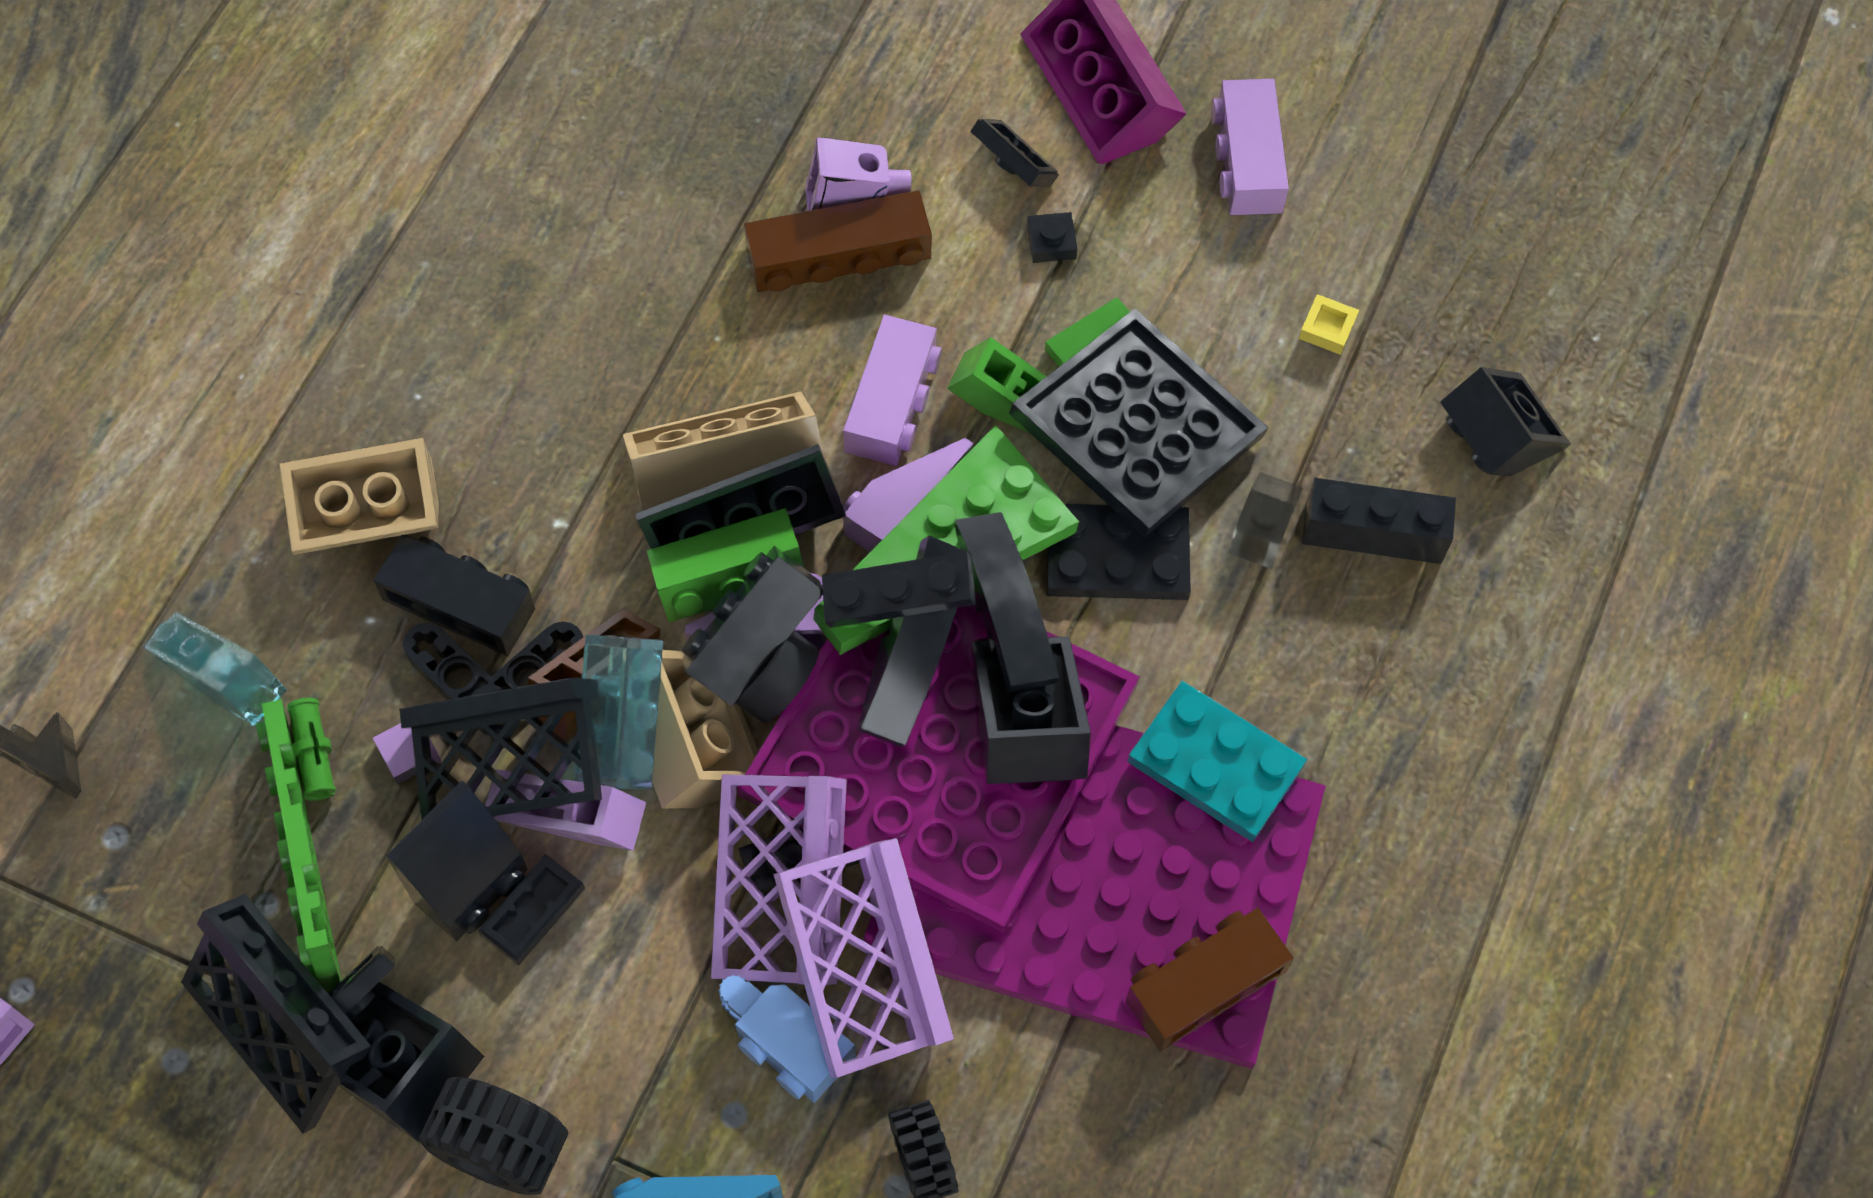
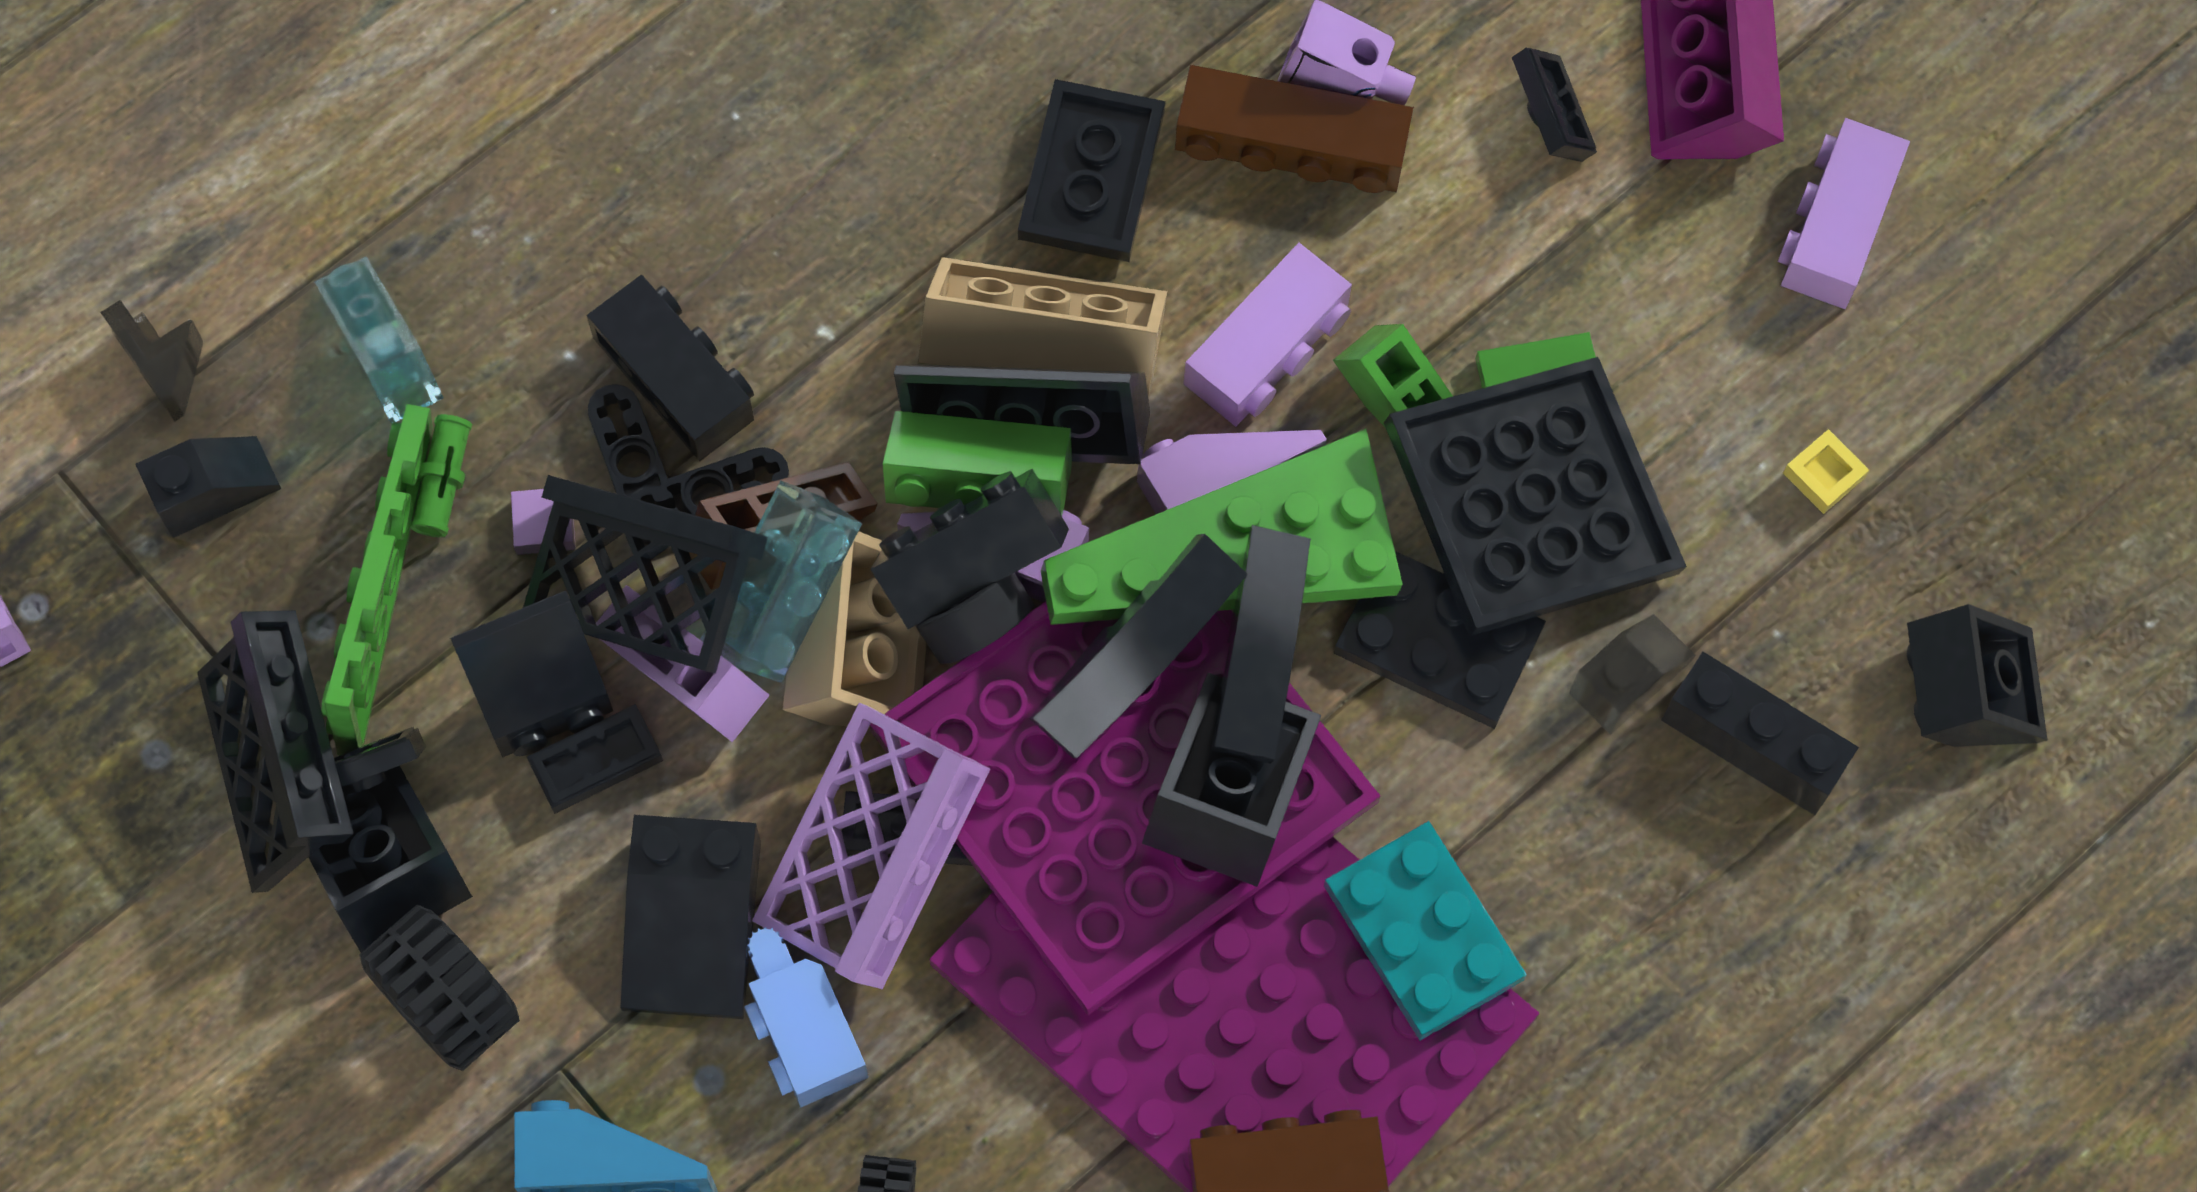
camera: 25 degrees right, 5 degrees up
(122, 830) = (206, 480): none -> black slope
(360, 496) = (615, 212): tan slope -> none
(662, 996) = (689, 916): none -> black slope
(705, 328) = (1091, 170): none -> black plate
(898, 589) = (1140, 581): black plate -> none
(904, 948) = (967, 981): lavender fence -> none
(1052, 237) = (1550, 226): black plate -> none

